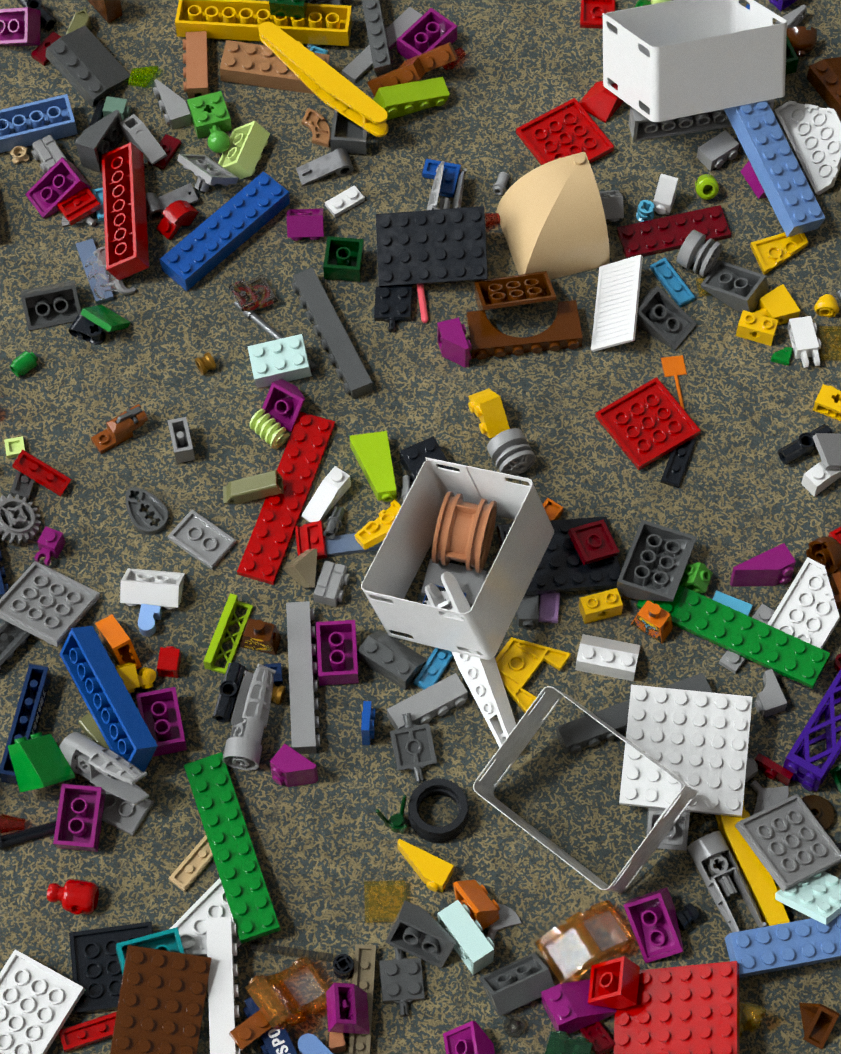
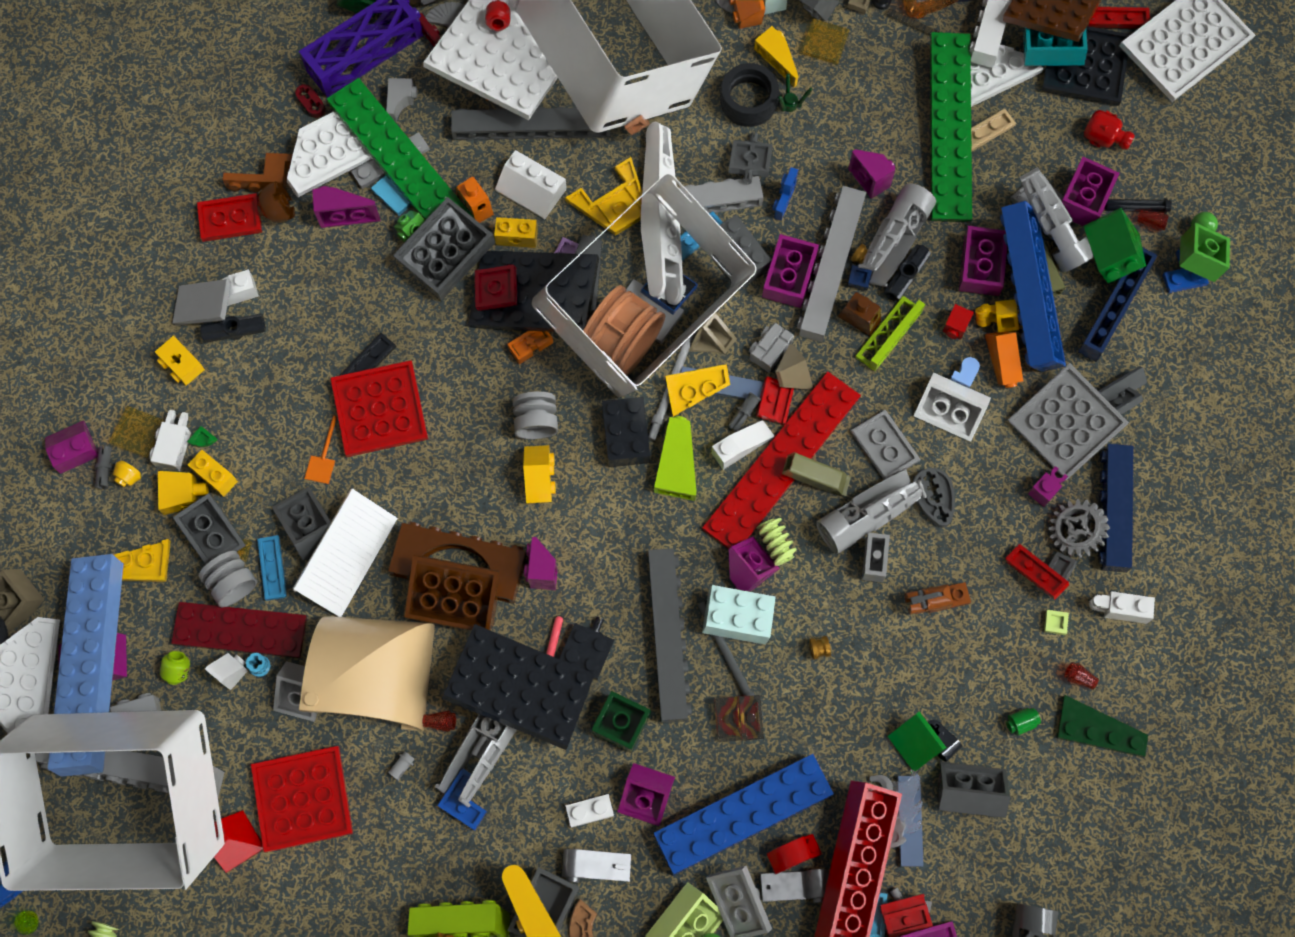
camera: 160 degrees left, 10 degrees up
(220, 449) = (869, 511): none -> light grey piece
(535, 743) = (636, 124): none -> nougat slope
(705, 767) = (497, 15): none -> red head

